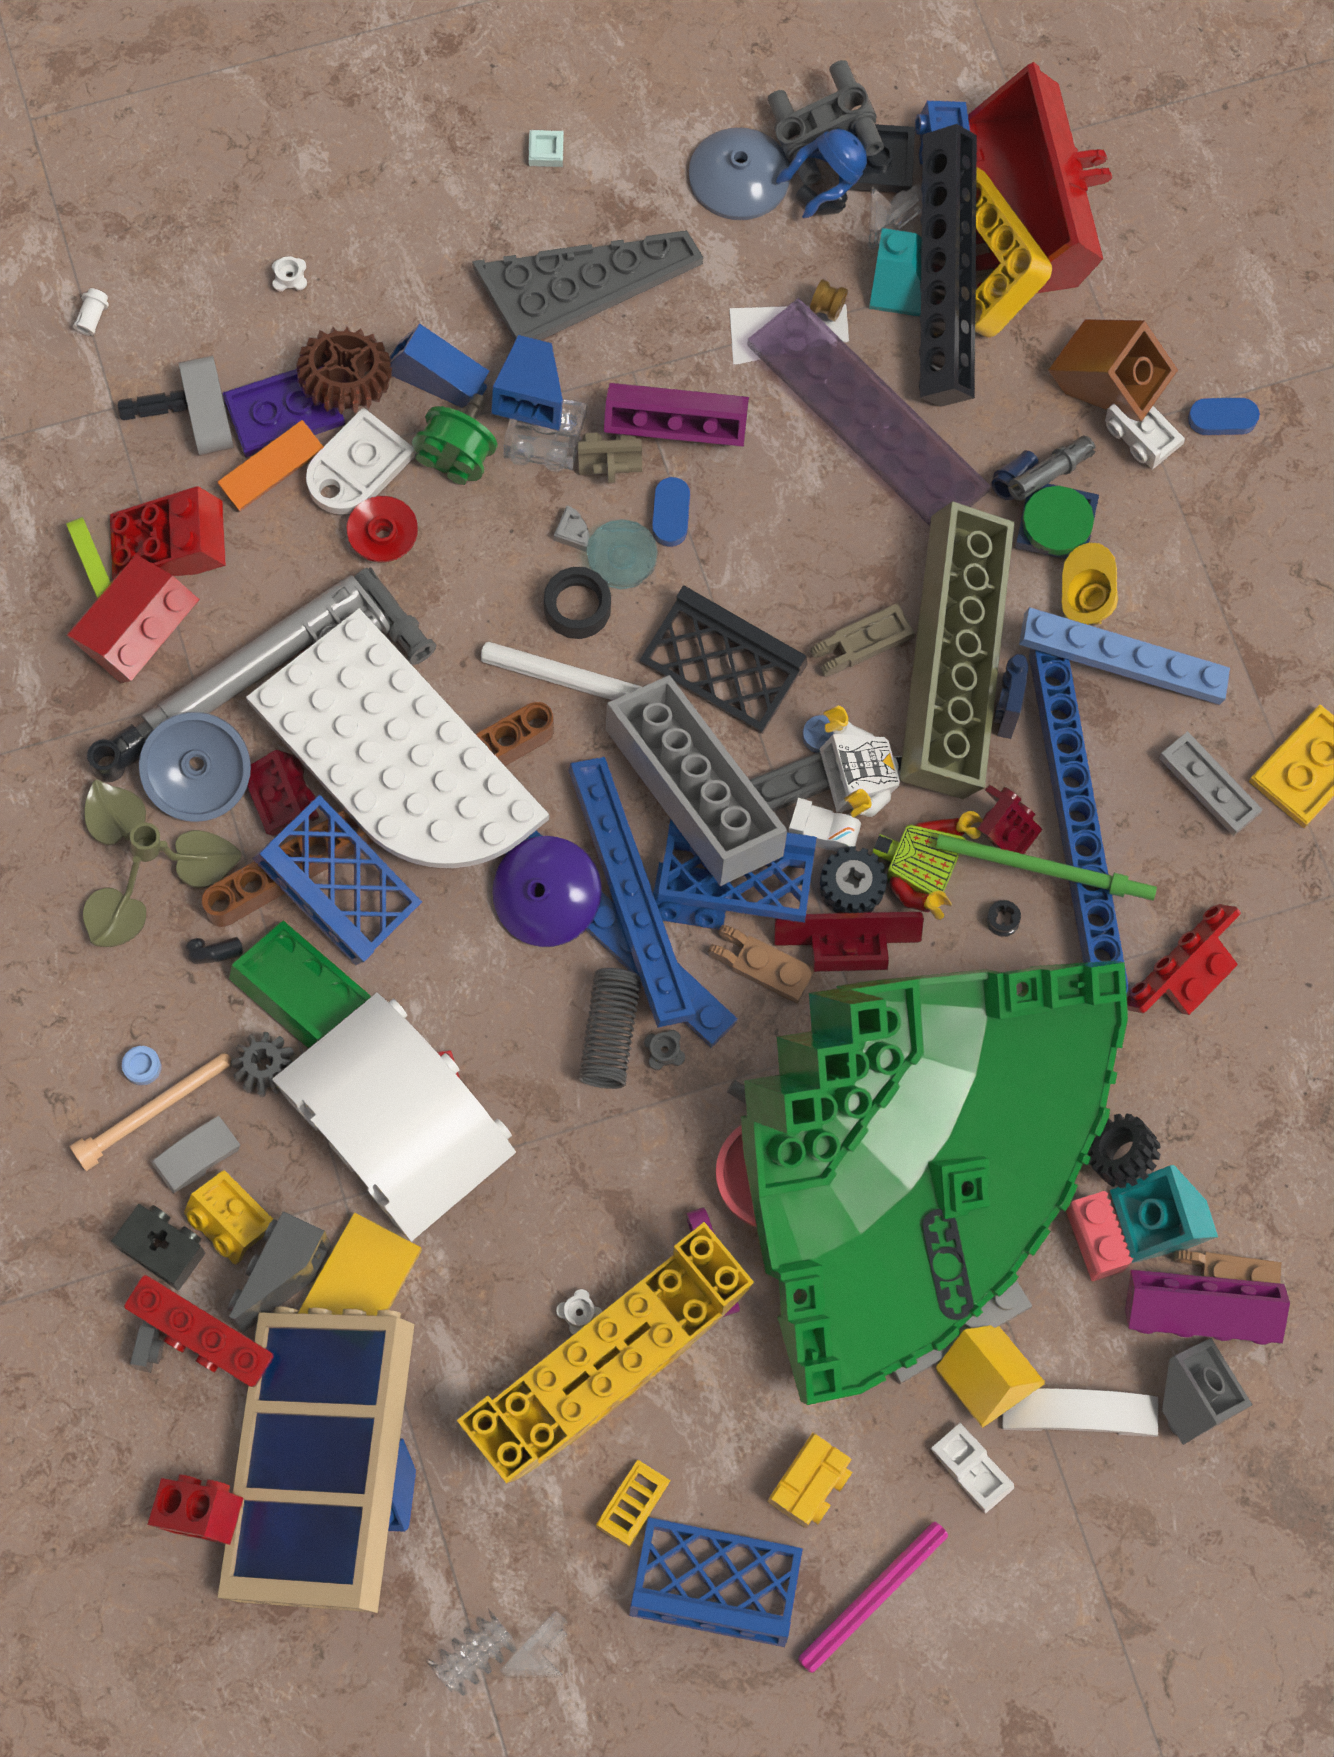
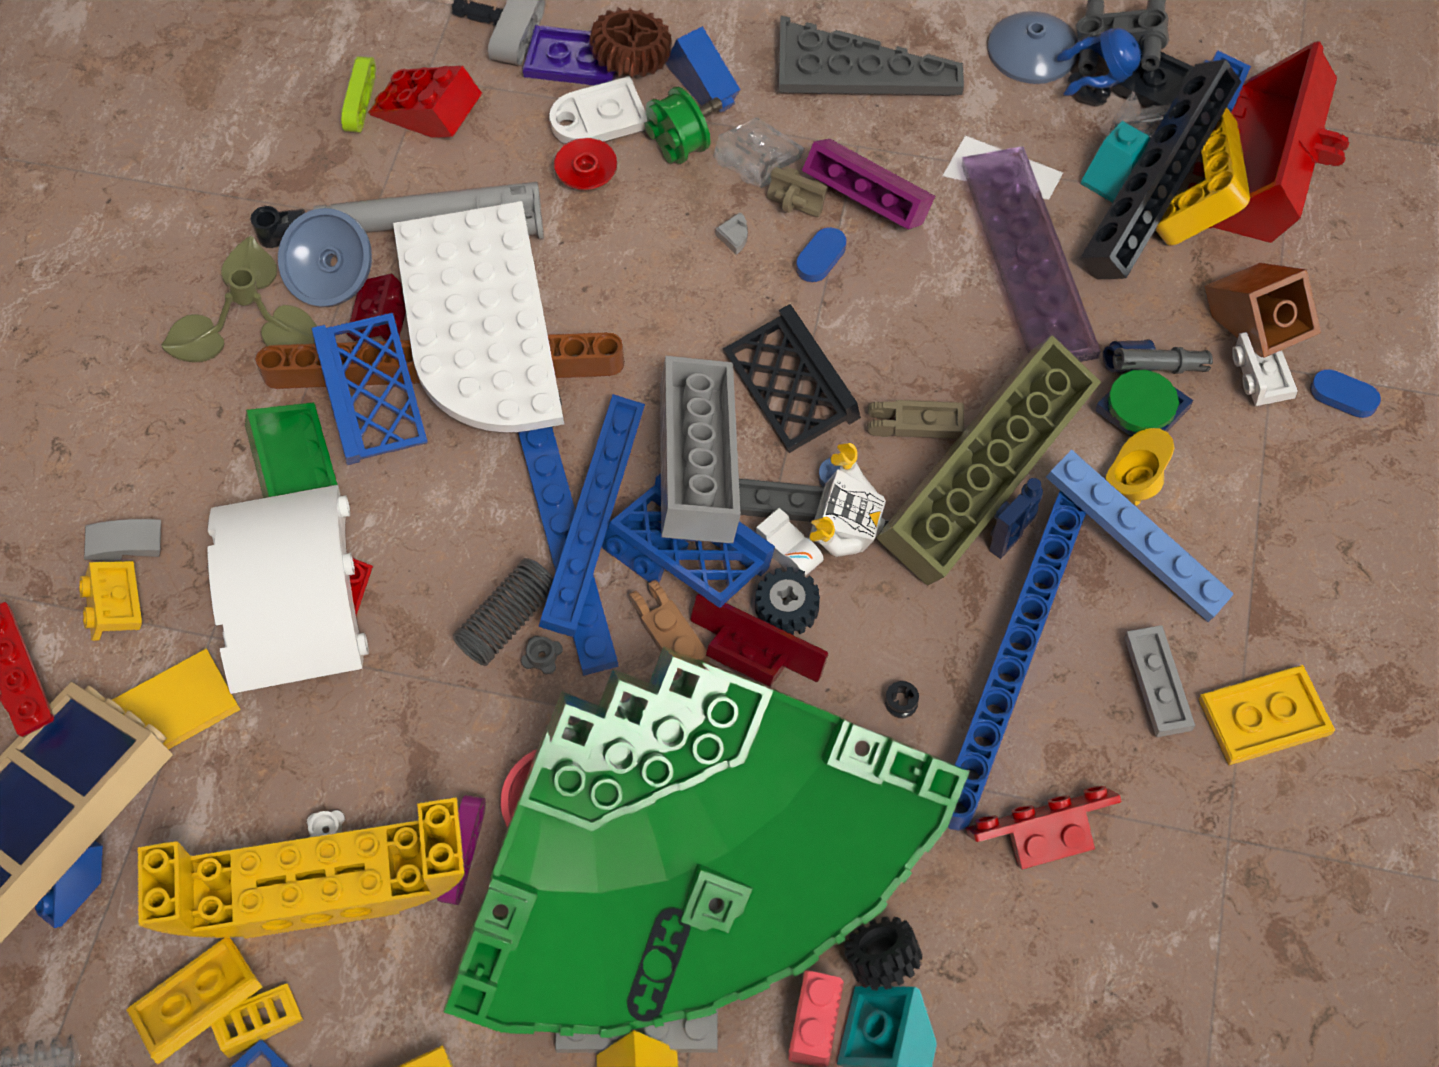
camera: 35 degrees right, 10 degrees down
(91, 1149) = (46, 495): light nougat piece -> none
(132, 618) = (356, 139): red slope -> none
(137, 1241) = (42, 592): pearl dark grey brick -> none
(141, 1065) = (134, 454): light blue tile -> none
(212, 953) = (237, 395): black arm -> none
(252, 1055) = (217, 491): dark grey gear -> none
(270, 465) = (533, 86): orange tile -> none
(282, 1270) = (108, 657): dark grey slope -> none
(403, 626) = (553, 238): dark grey pin -> none
(529, 385) = (762, 110): blue slope -> none
(555, 672) = (644, 320): white axle -> none
(569, 896) = (537, 490): dark purple dish -> none
(571, 1518) = (193, 999): none -> yellow tile
(577, 577) = (701, 263): black tyre -> none
(622, 553) = (761, 266): clear light blue tile -> none
(828, 300) = (1047, 158): pearl gold wheel -> none
(920, 869) = (860, 614): torso -> none
(1009, 822) = (948, 620): dark red bracket -> none
(1116, 884) = (1014, 715): bright green bar -> none

